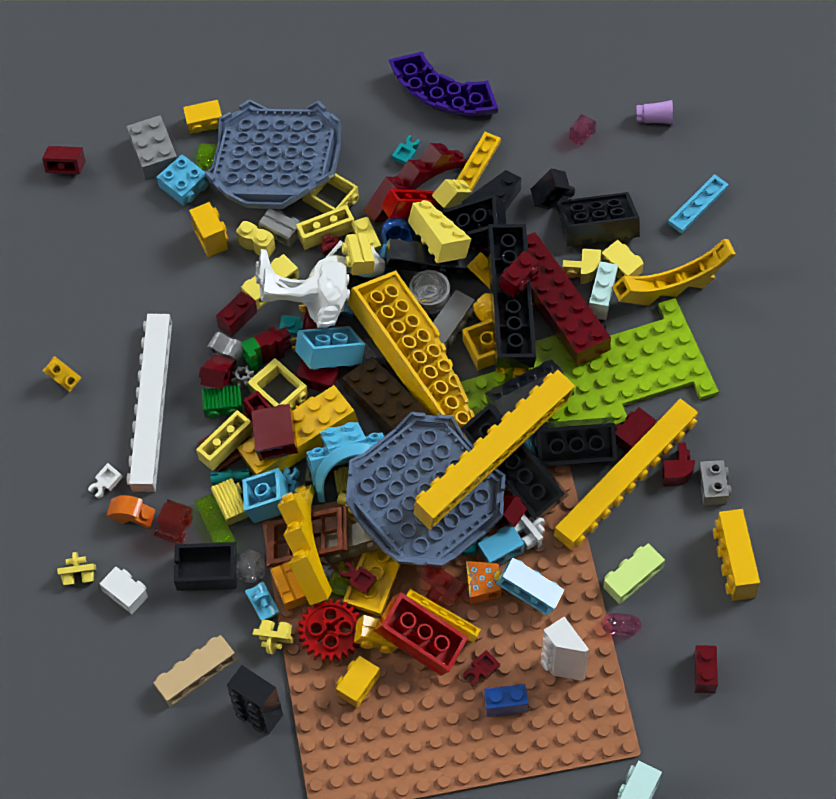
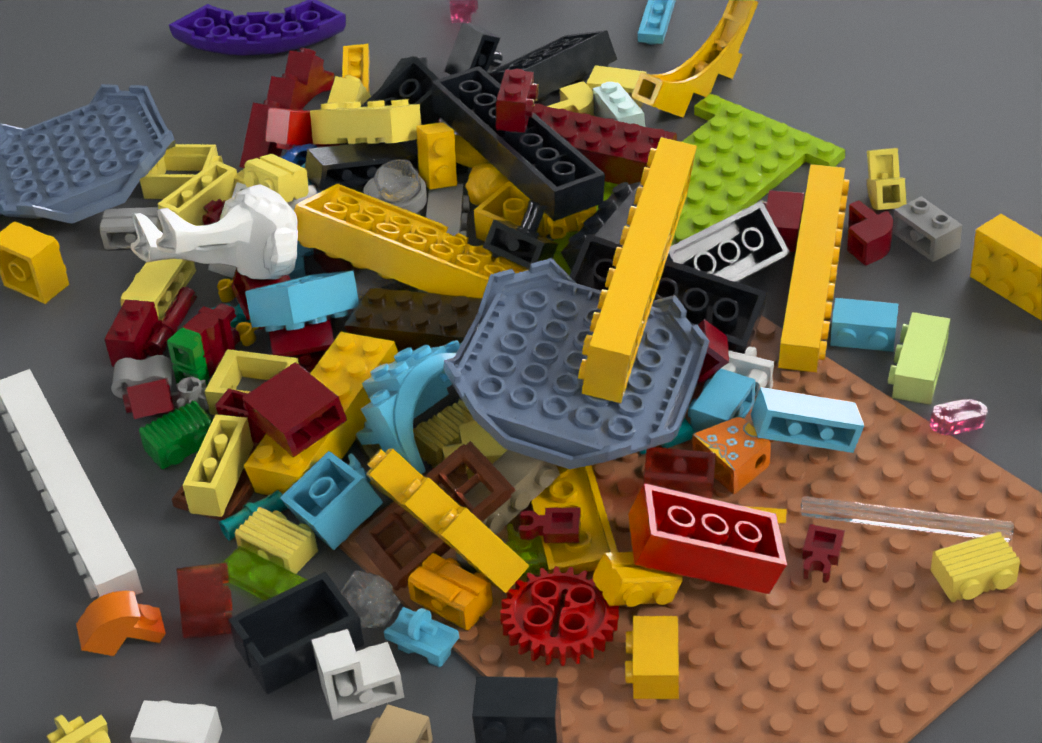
camera: 30 degrees left, 20 degrees down
(107, 478) = (50, 605): white plate -> none
(218, 609) = (355, 678): none -> white brick
(255, 239) = (105, 251): light yellow brick -> none
(255, 319) = (170, 322): none -> dark red pin
(271, 637) = (461, 672): light yellow hips -> none
(406, 151) = (252, 95): teal plate -> none
(465, 276) = (436, 155): none -> yellow brick
(470, 372) = (521, 242): none -> black brick
(506, 700) = (893, 568): blue brick -> none
(539, 673) = (904, 518): none -> clear axle
(547, 723) = (975, 567): none -> light yellow brick
(564, 651) = (936, 448): white slope -> none
(621, 533) = (864, 324): none -> medium azure brick
(716, 434) = (884, 183): none -> light yellow brick

